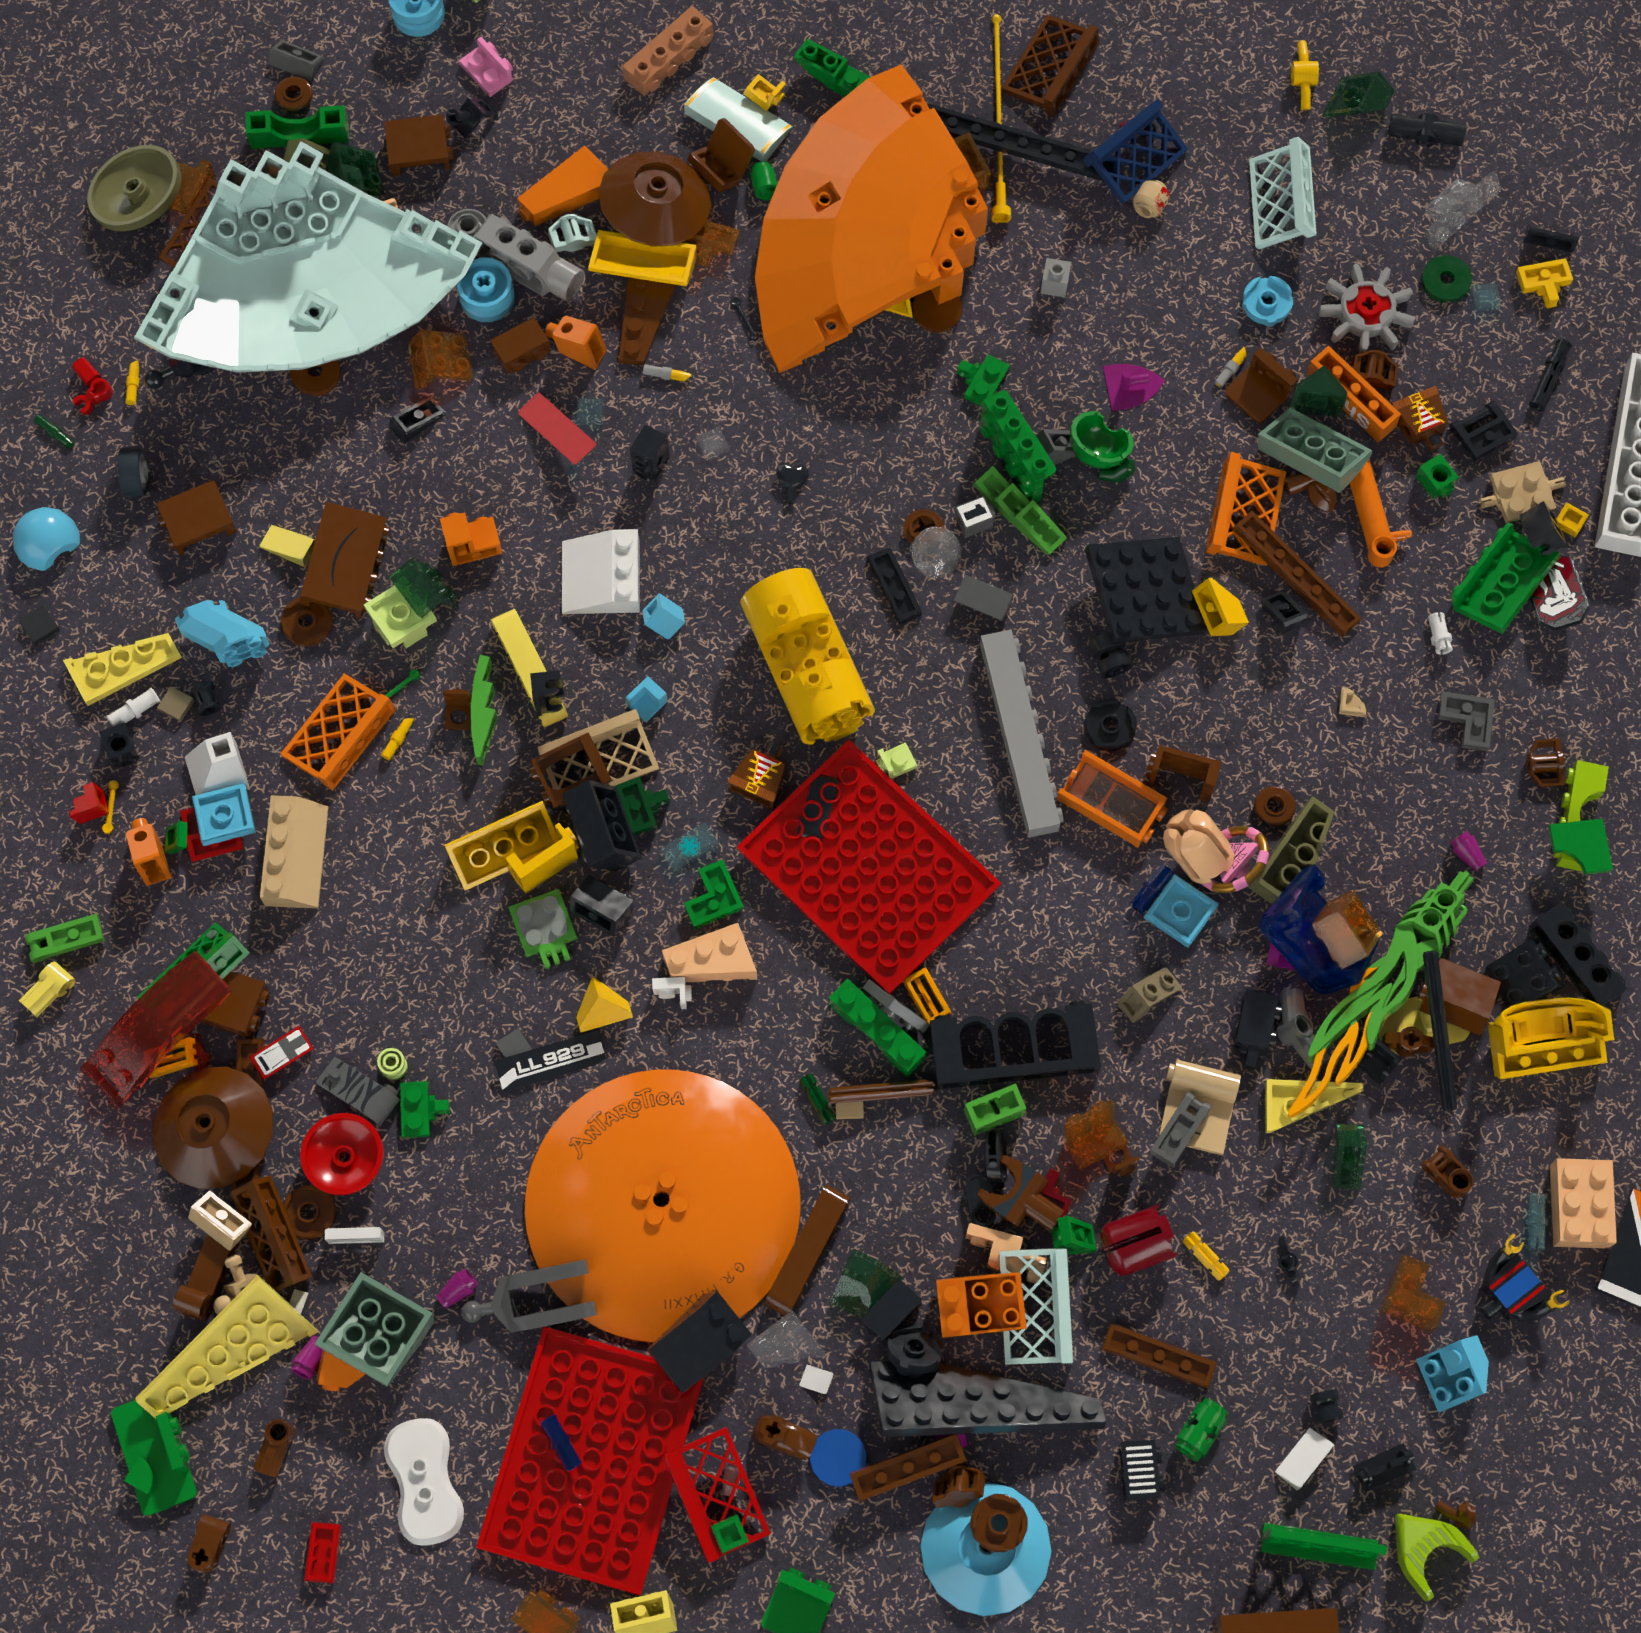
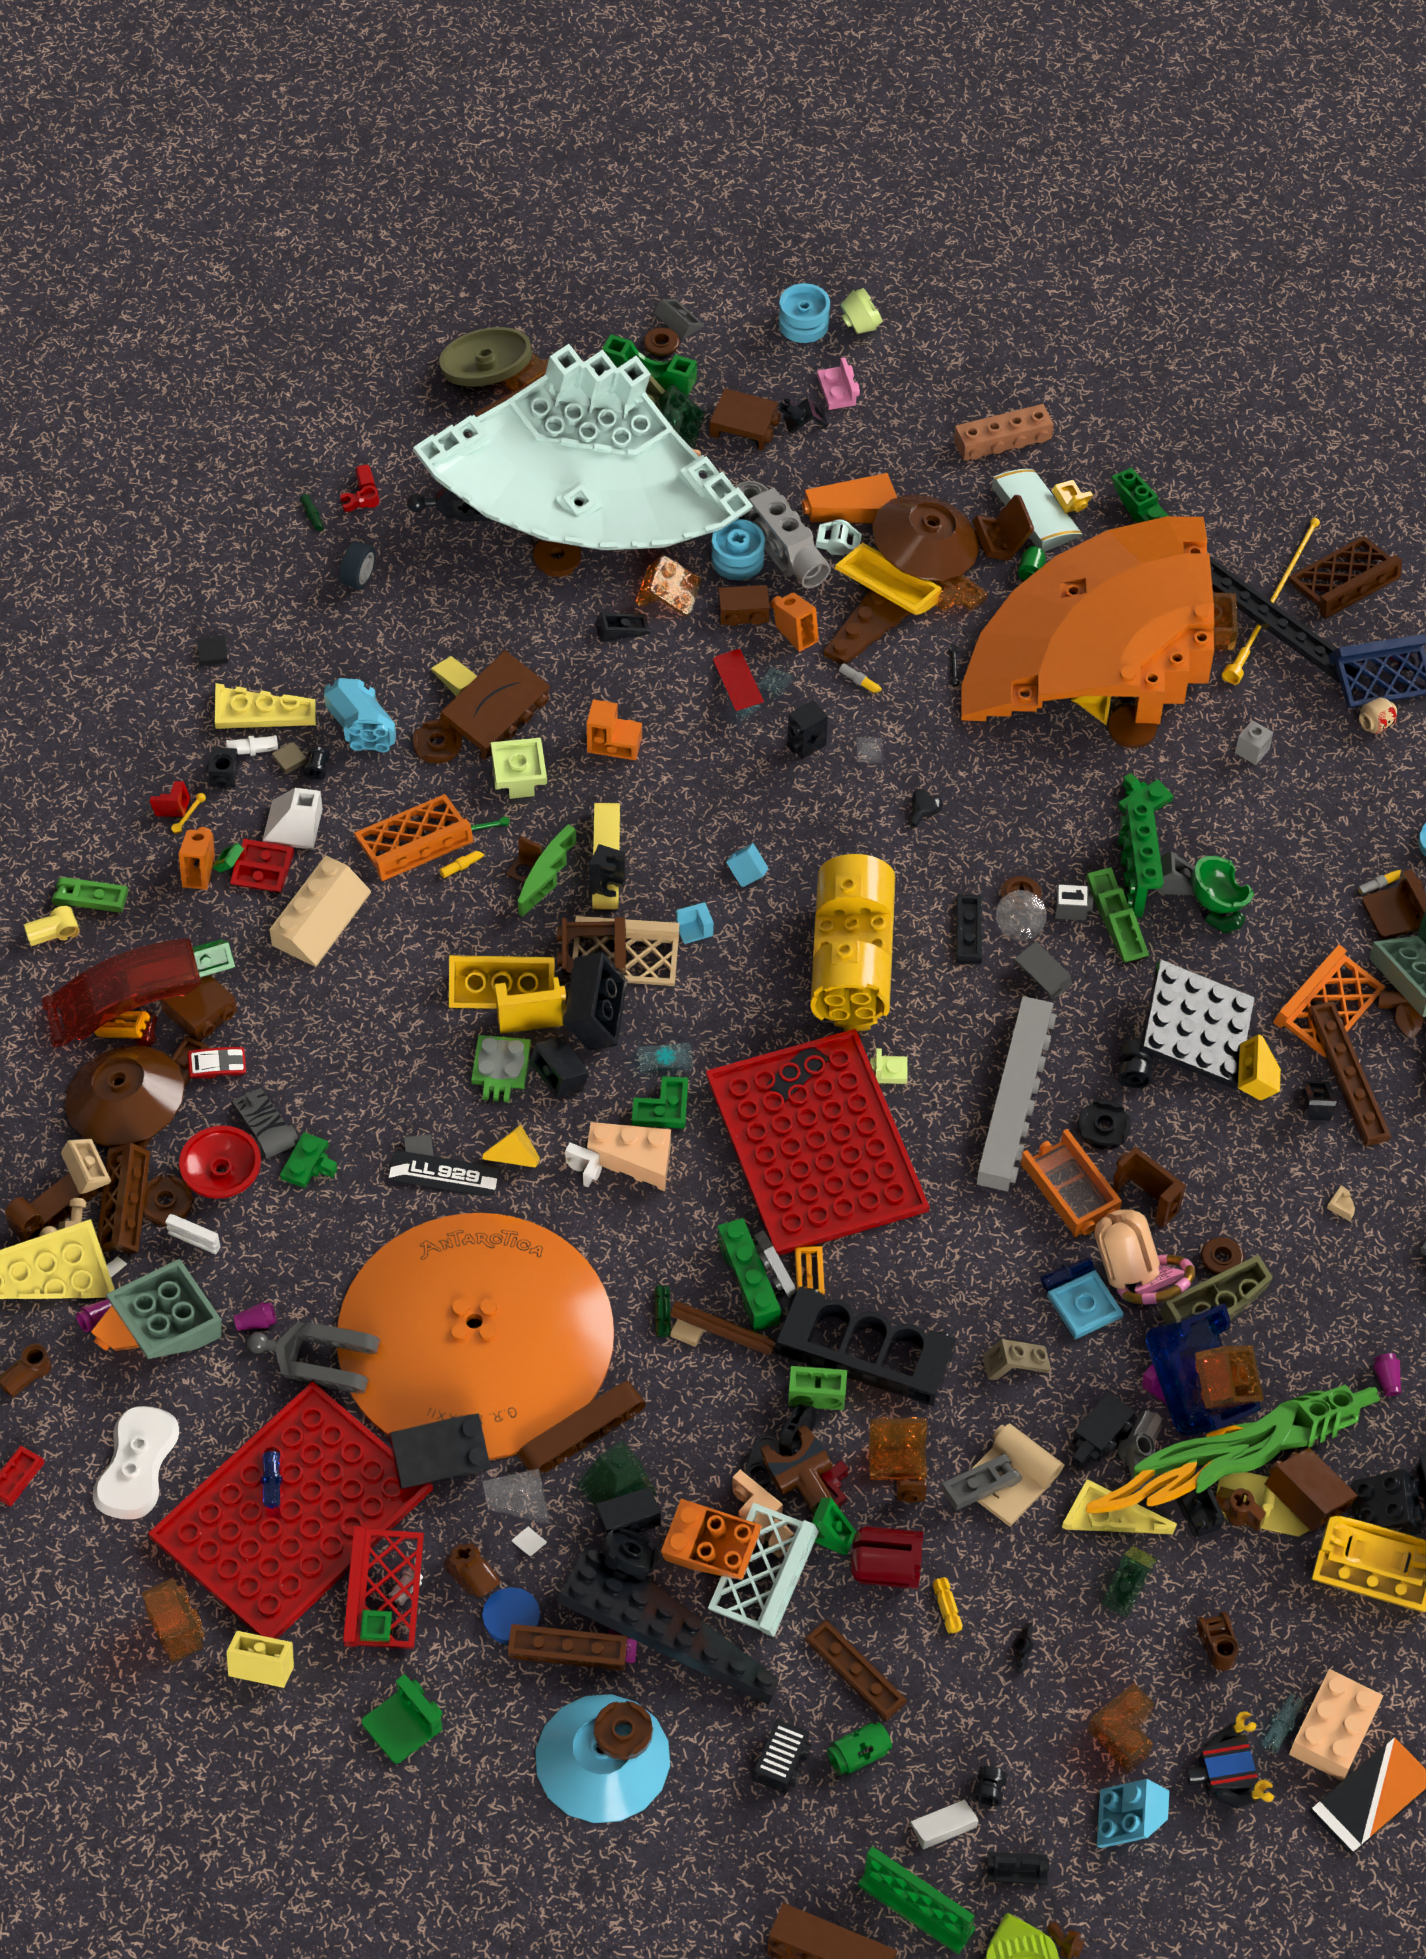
camera: 25 degrees right, 15 degrees down
(43, 536) = (255, 584): medium azure cylinder -> none
(132, 383) = (398, 503): yellow piece -> none
(194, 516) = (390, 620): reddish brown panel -> none
(223, 814) = (278, 855): medium azure plate -> none
(396, 1068) = (304, 1119): yellowish green wheel -> none
(422, 587) = (548, 749): clear green bracket -> none
(601, 573) = (714, 809): white slope -> none
(641, 804) = (641, 1005): dark green hinge -> none
(759, 776) = (759, 1026): torso -> none
(958, 1493) = (605, 1688): reddish brown piece -> none
(1130, 385) = (1277, 859): magenta shield -> none
(1439, 1030) = (1272, 1505): black axle -> none

